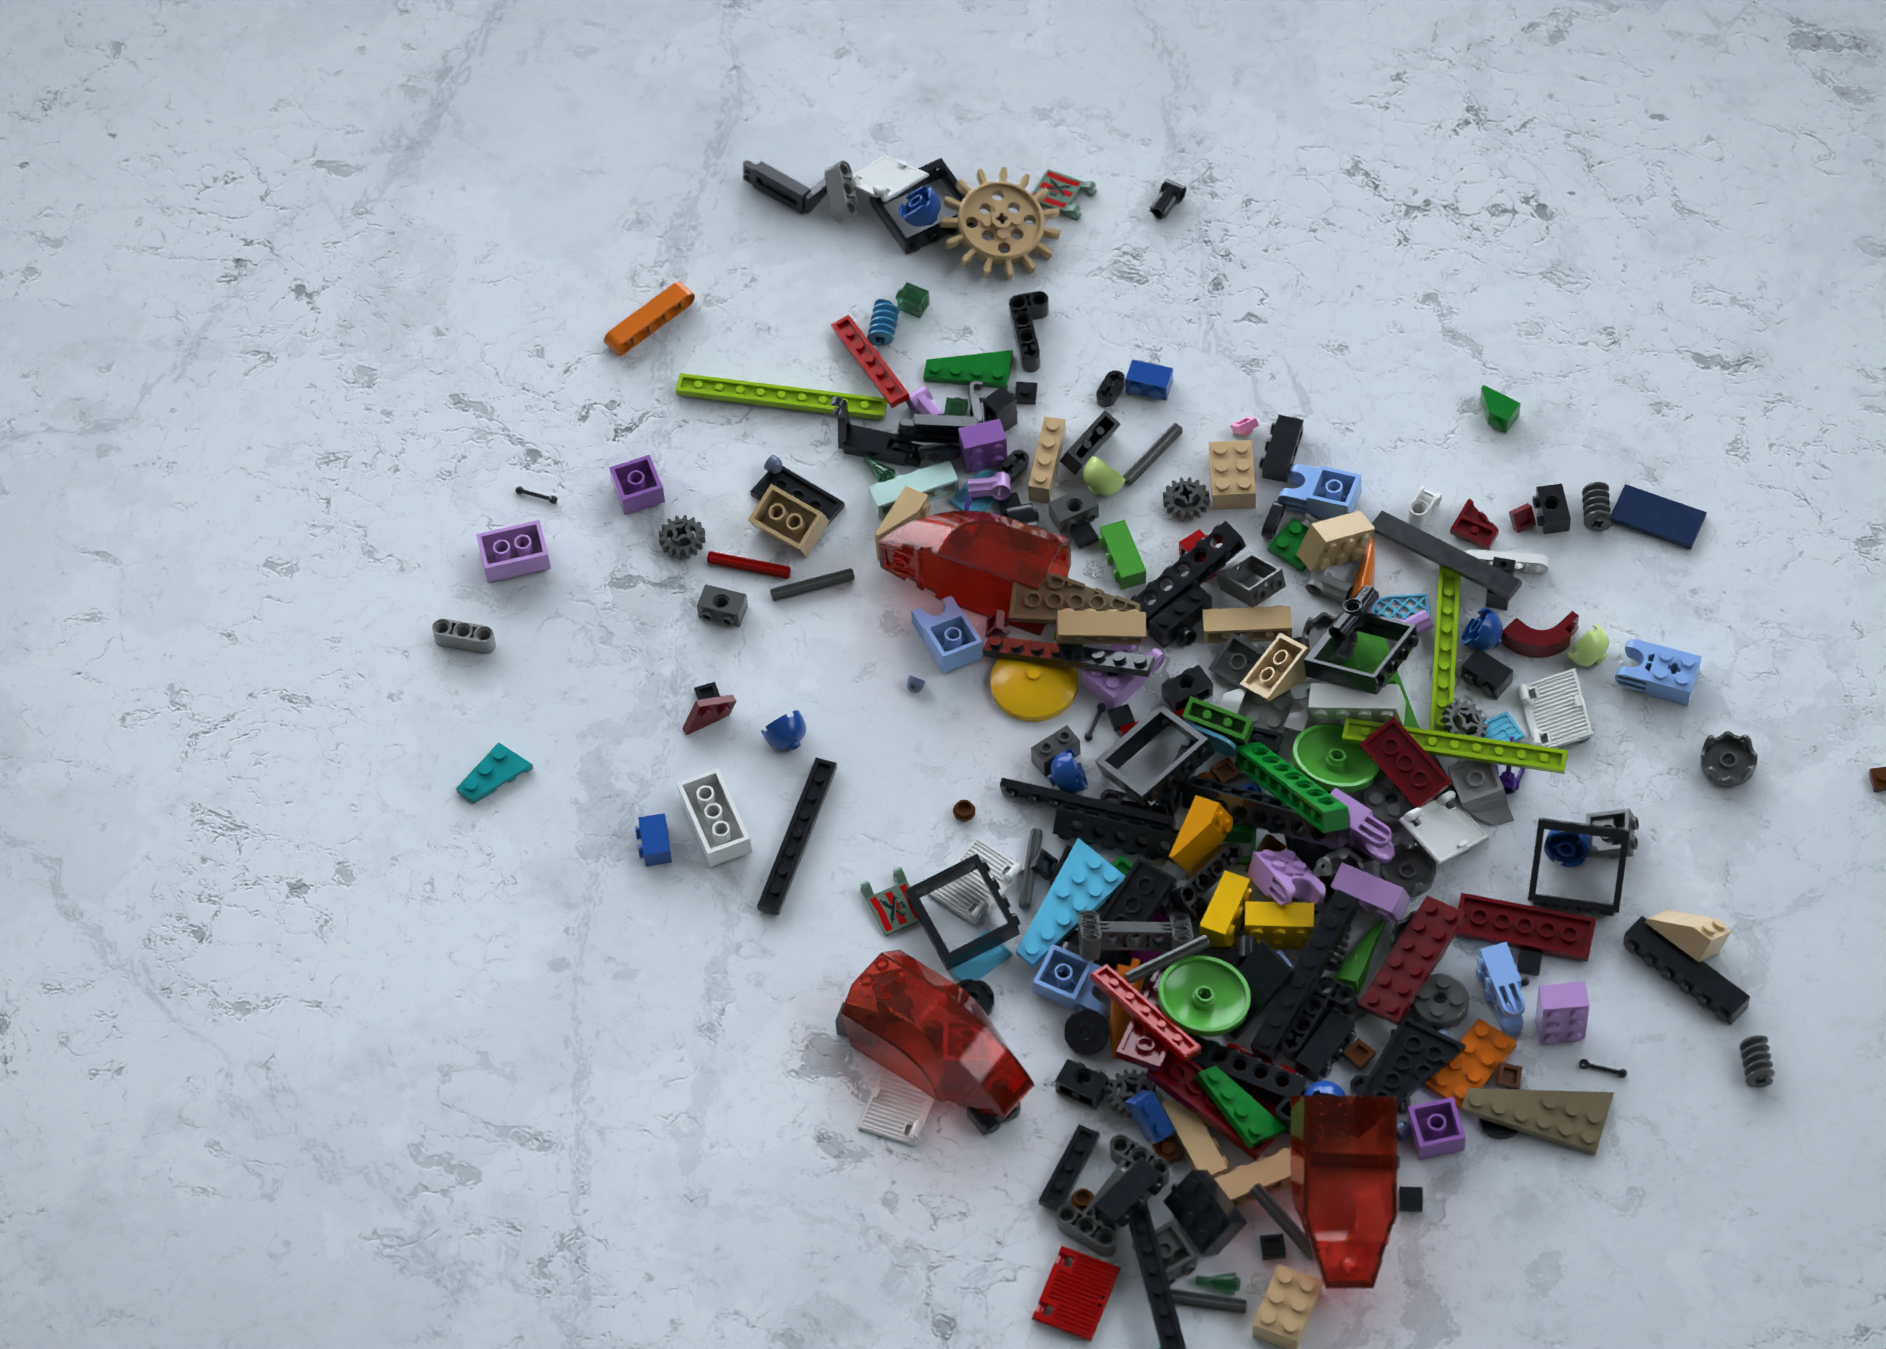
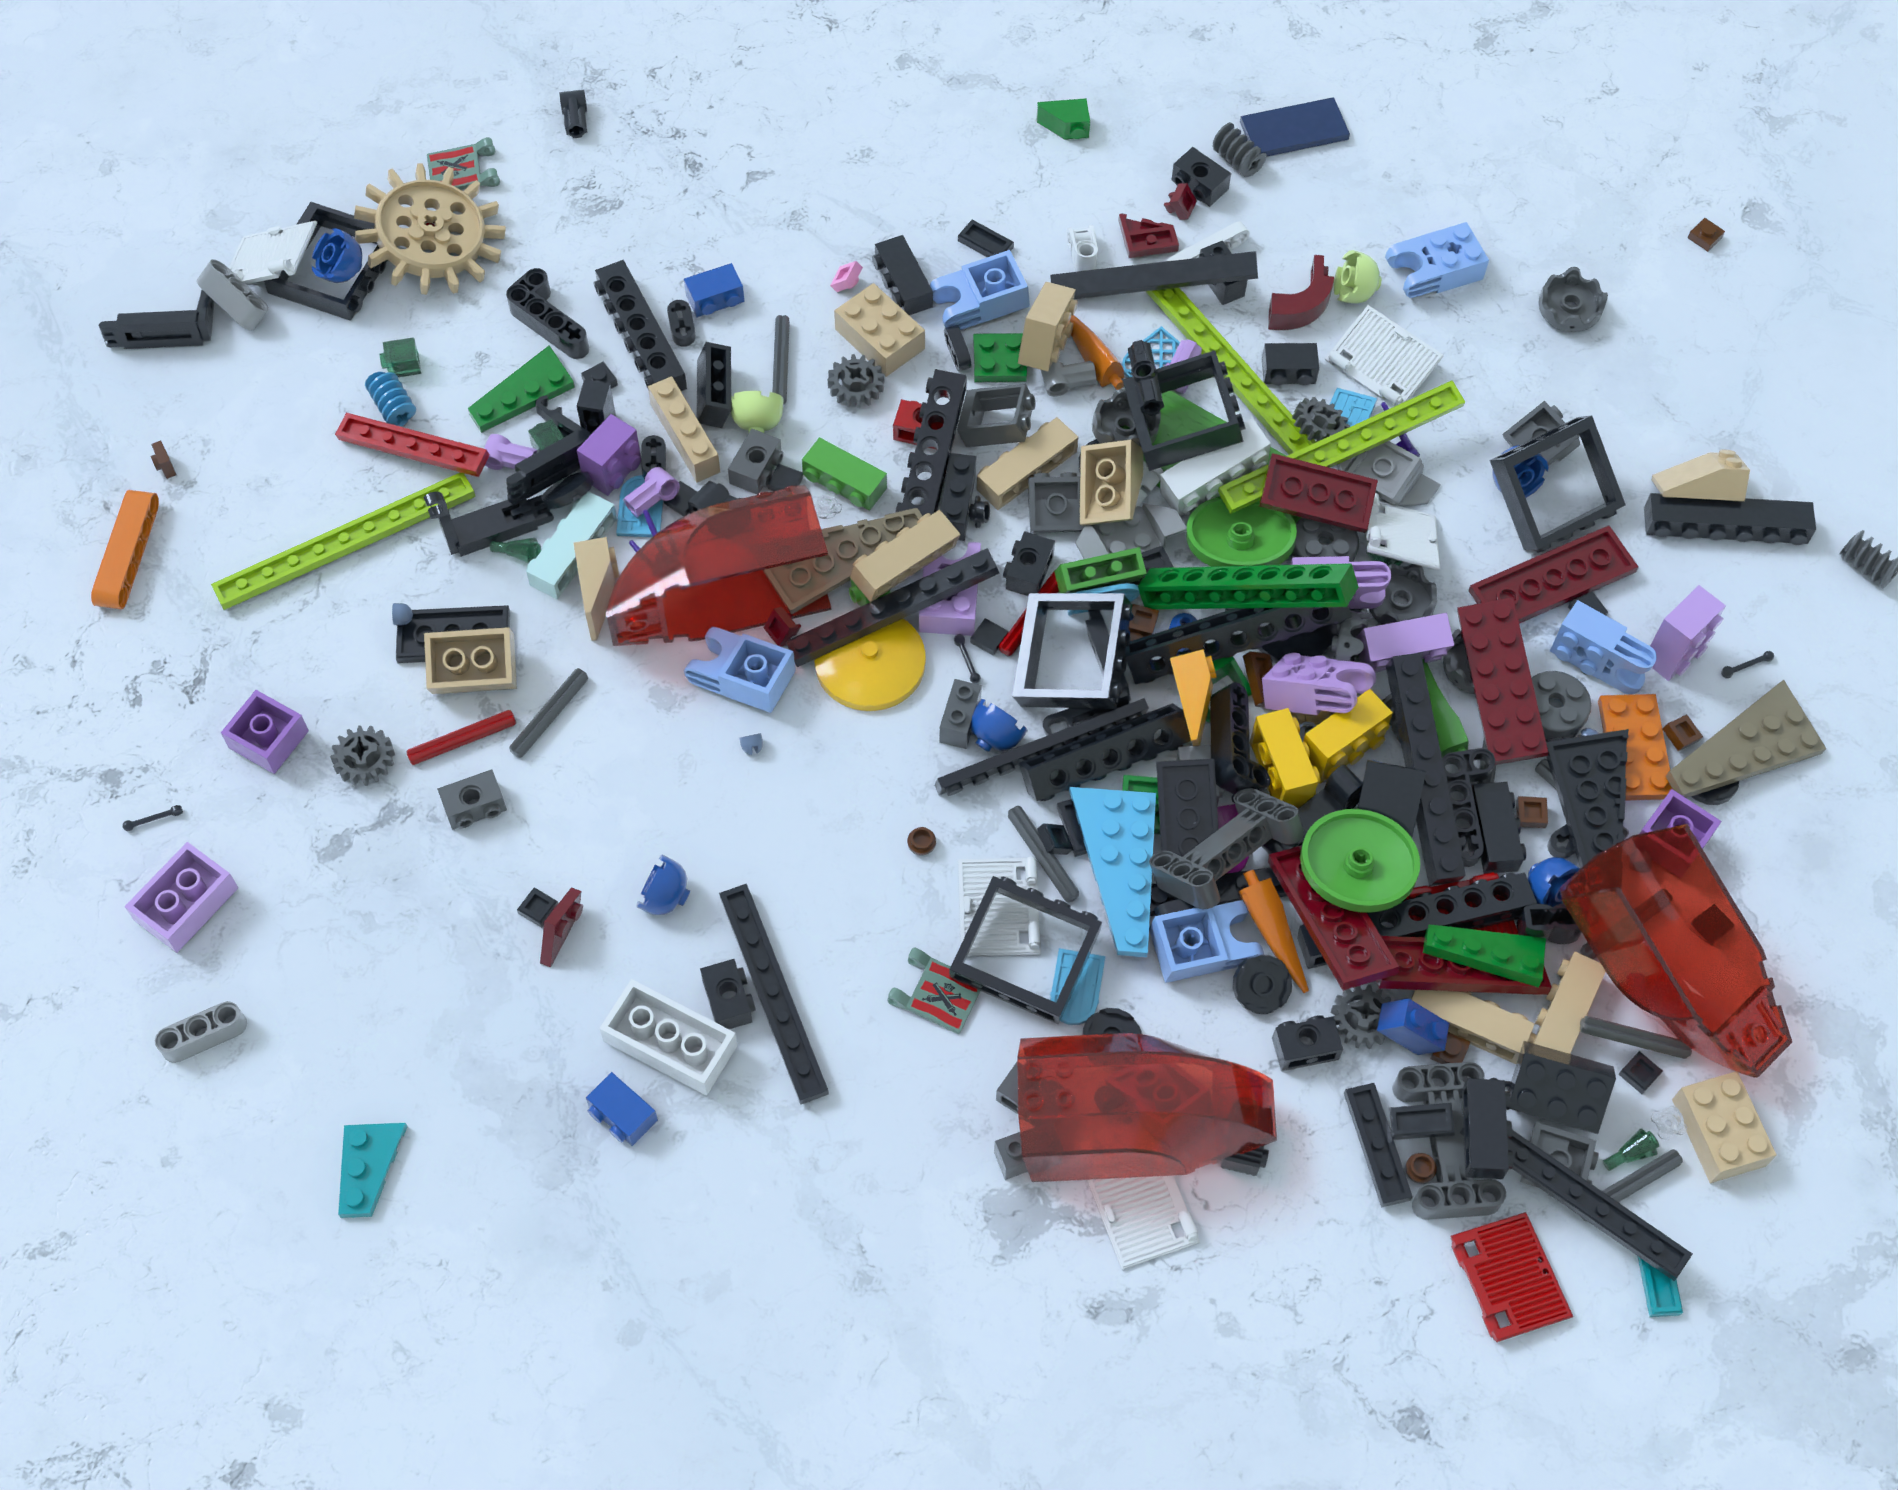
camera: 45 degrees left, 5 degrees up
(715, 275) = (161, 460): none -> reddish brown plate
(768, 807) = (722, 978): none -> black brick
(1079, 373) = (638, 325): none -> black brick
(1101, 1169) = (1422, 1121): none -> black tile
(1145, 1013) = (1324, 920): red tile -> none
(1167, 959) = (1291, 847): dark grey axle -> none
(1310, 519) = (996, 326): light grey bush -> none
(1363, 460) = (984, 239): none -> black tile
(1483, 632) = (1252, 324): blue cylinder -> none

